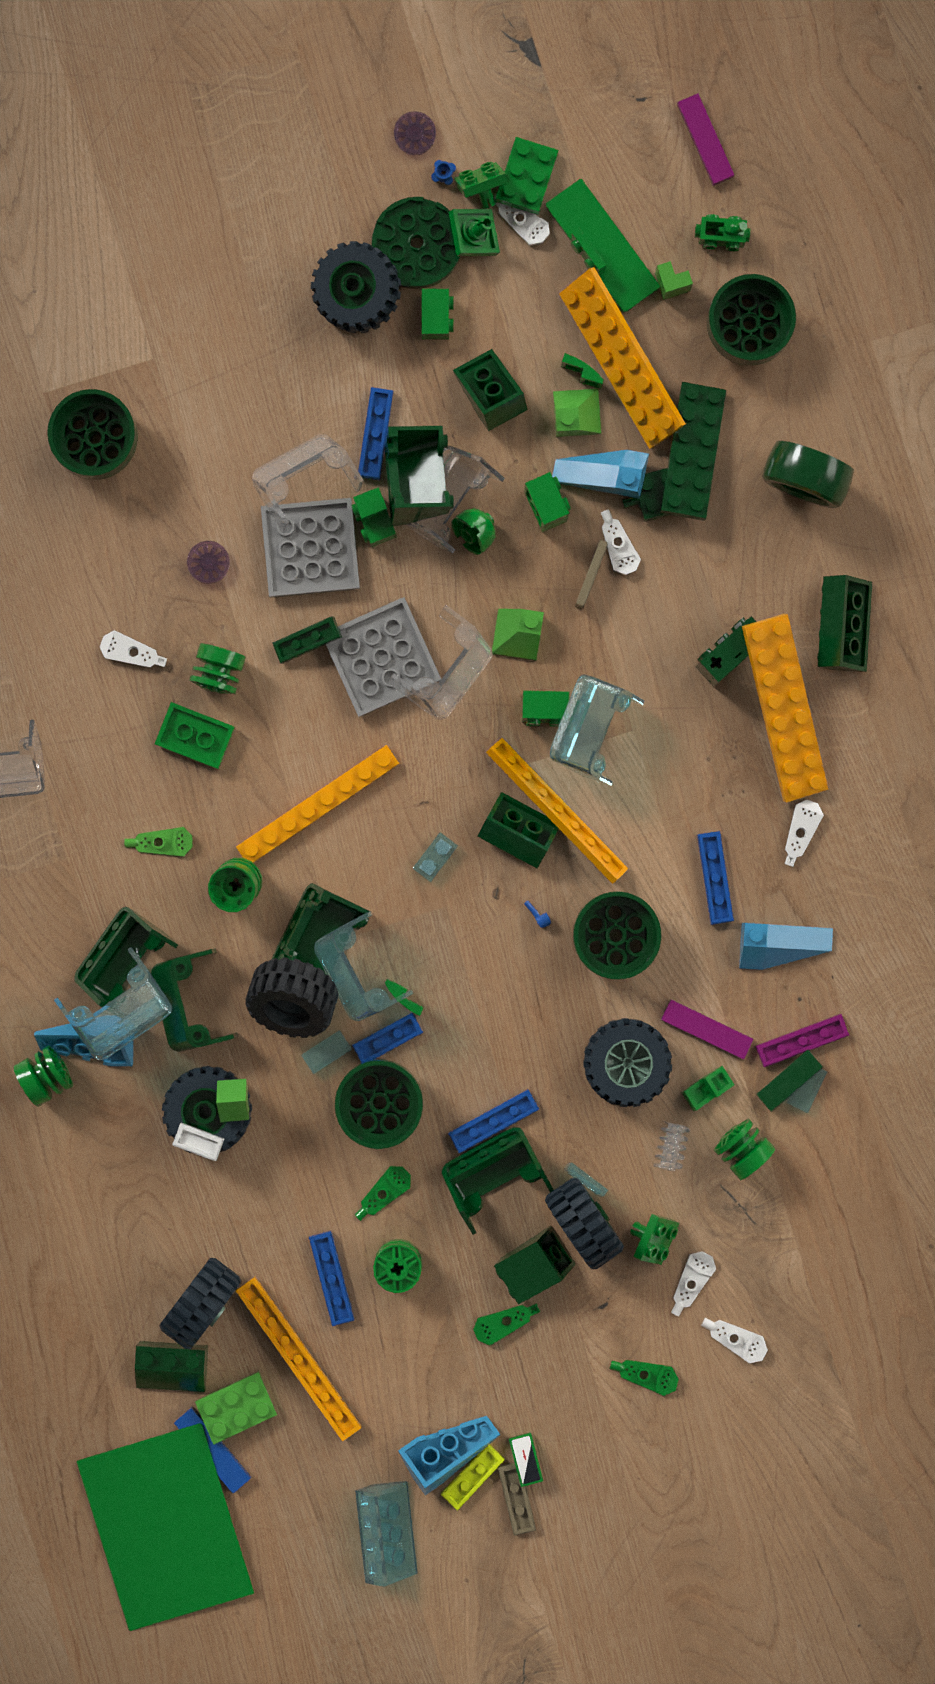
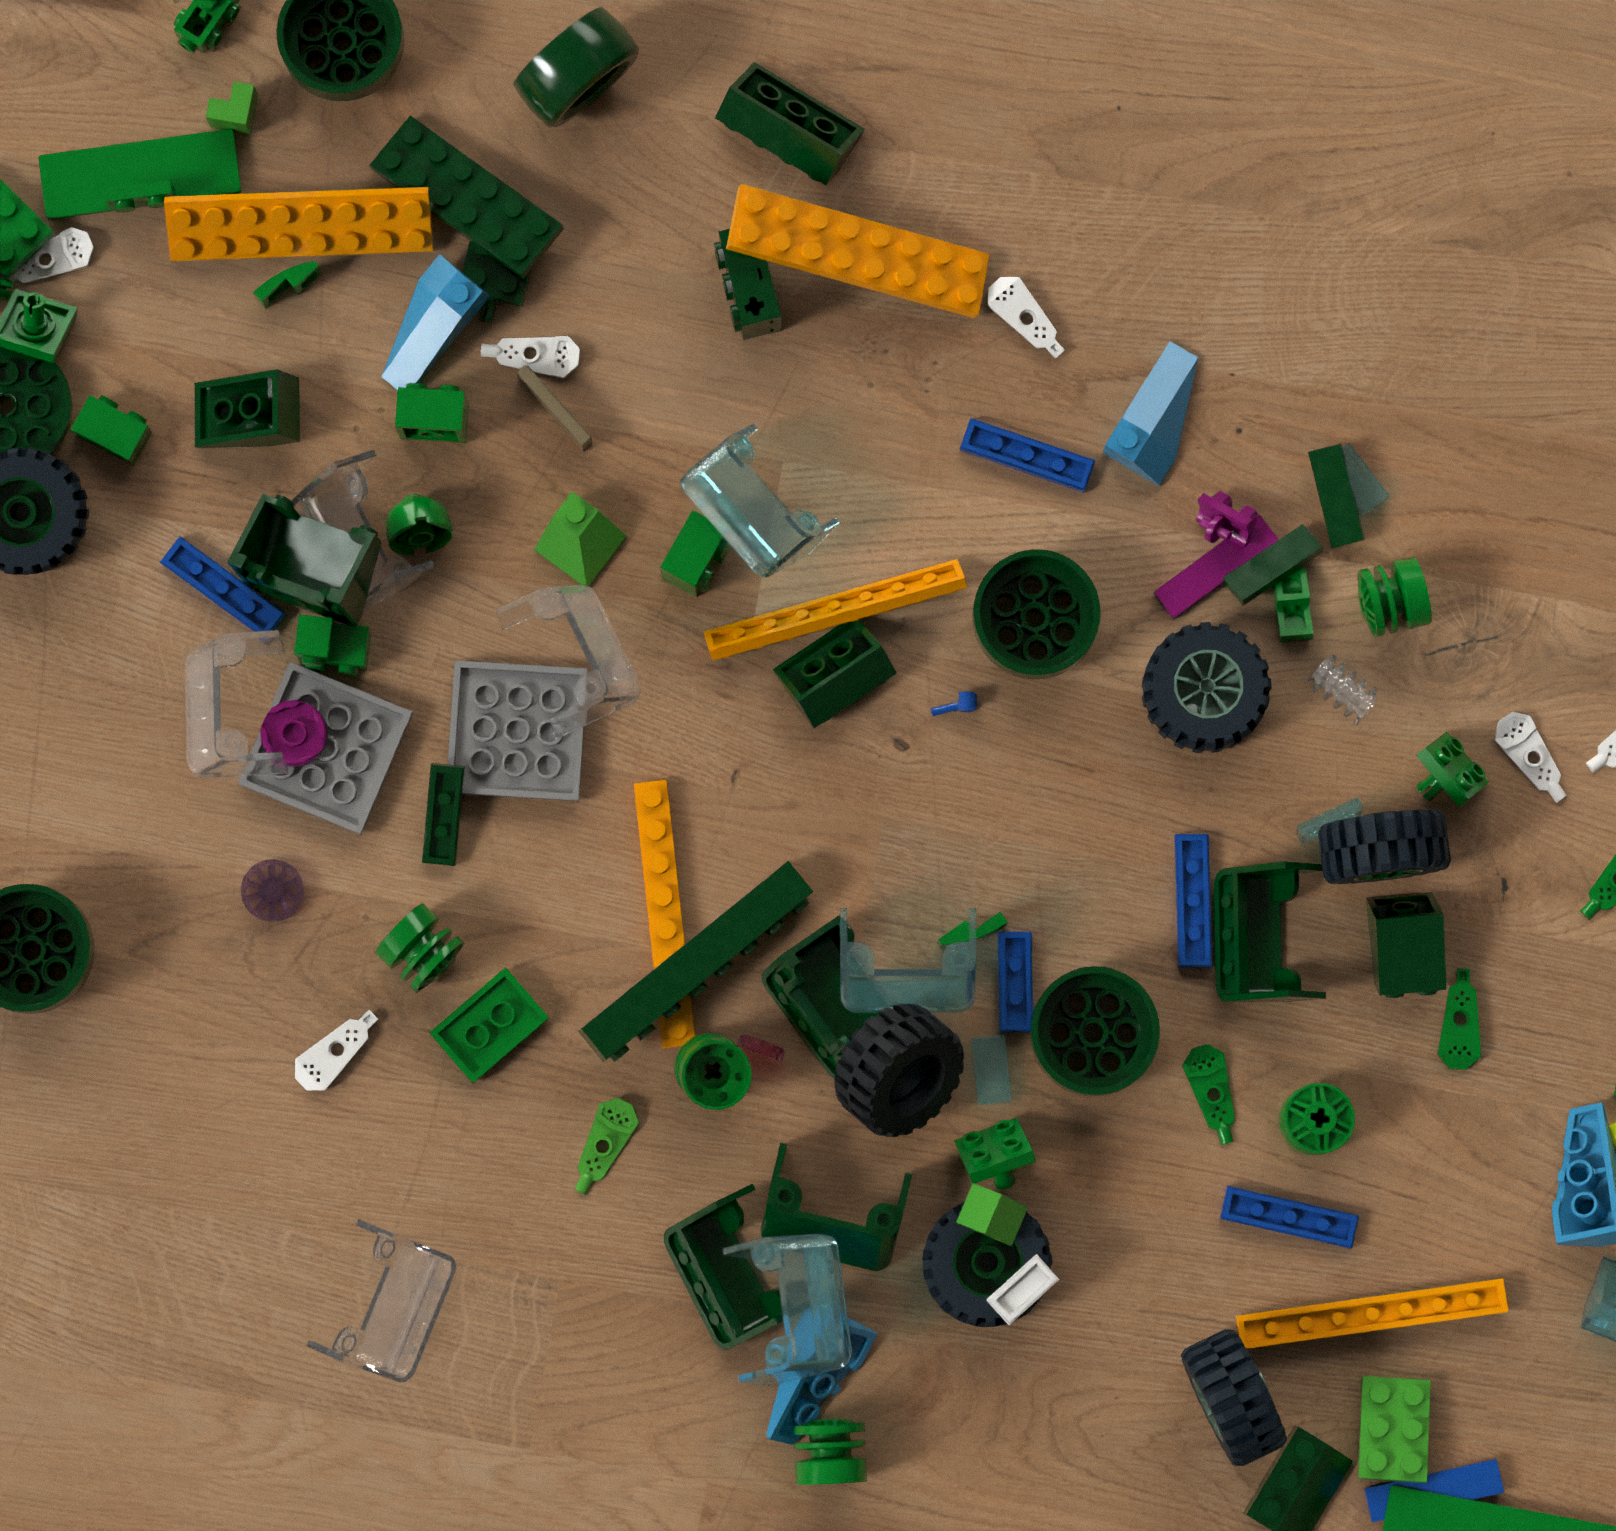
camera: 65 degrees left, 5 degrees down
(266, 906) = (761, 1047): none -> clear pink tile
(275, 1081) = (995, 1153): none -> green plate
(295, 839) = (696, 961): none -> dark green brick
(308, 523) = (295, 731): none -> magenta tile
(435, 857) = (812, 797): clear light blue piece -> none
(577, 412) = (336, 318): bright green slope -> none
(726, 1063) = (1272, 564): none -> dark green tile
(736, 1020) = (1223, 521): none -> magenta hips
(802, 1040) = (1292, 454): magenta tile -> none

